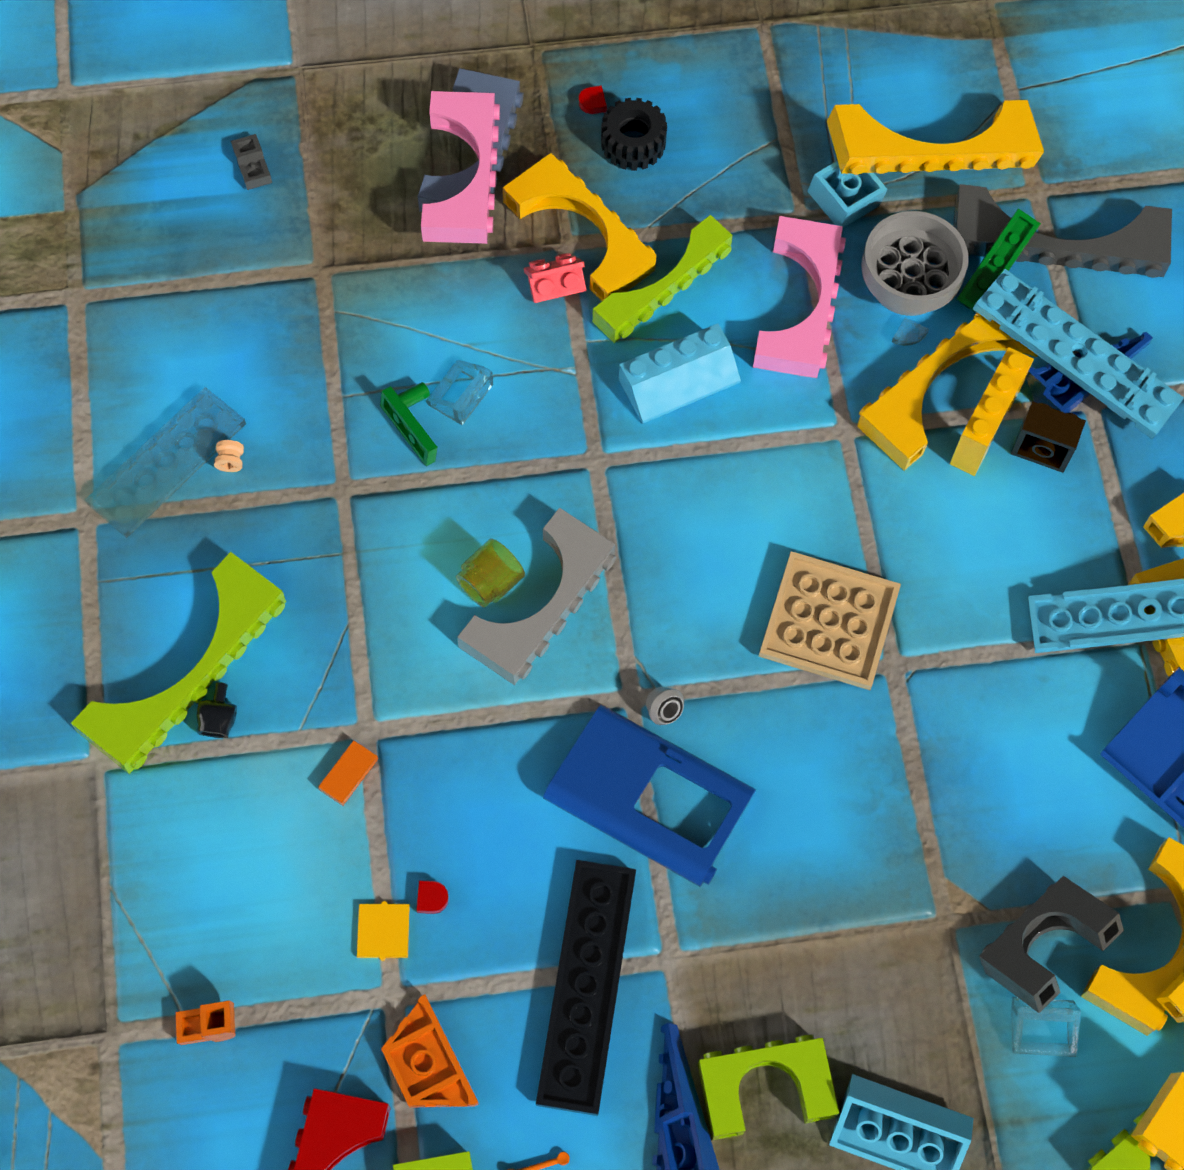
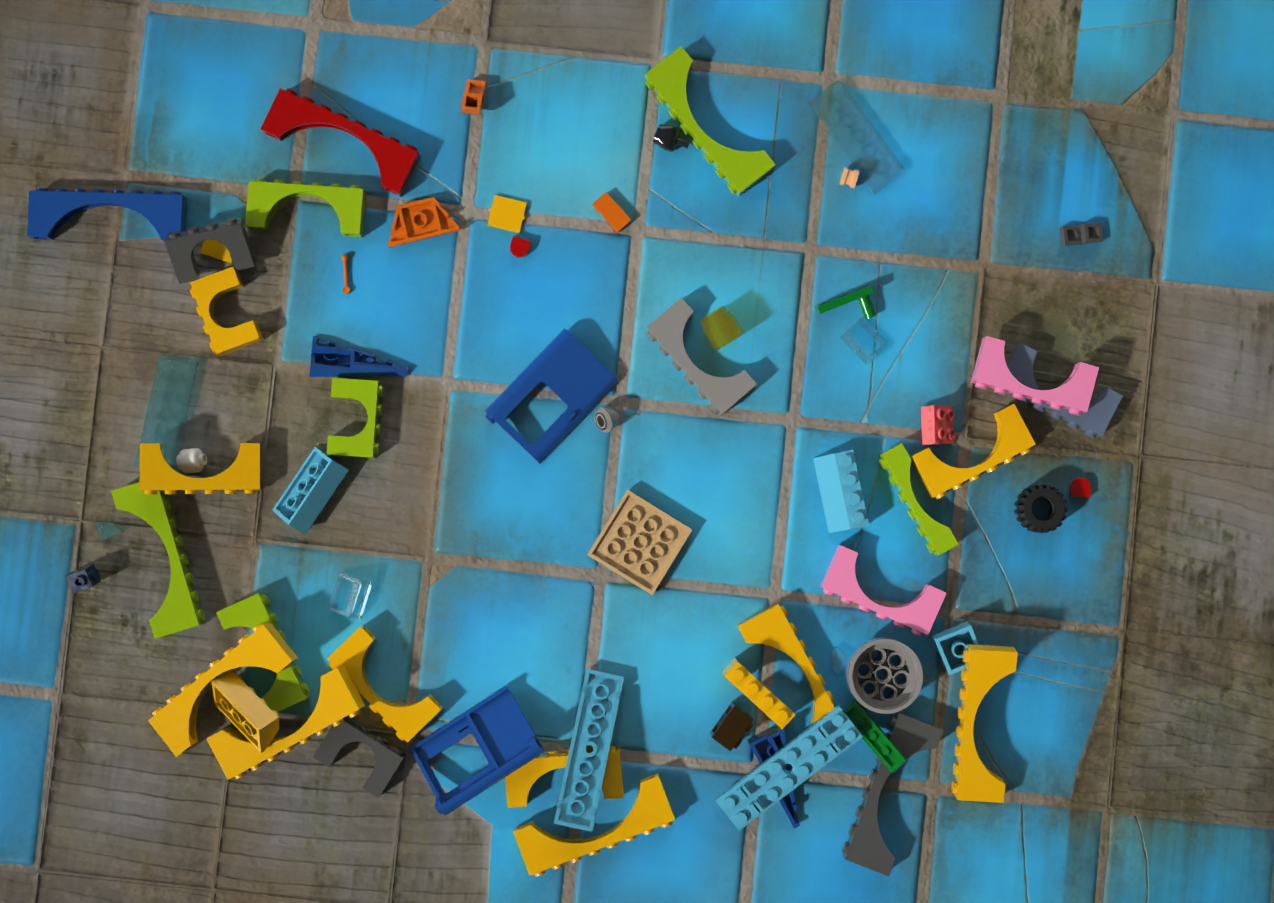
camera: 105 degrees right, 20 degrees up
(586, 988) = (442, 327): black plate -> none
(1059, 908) = (394, 586): dark grey arch -> none

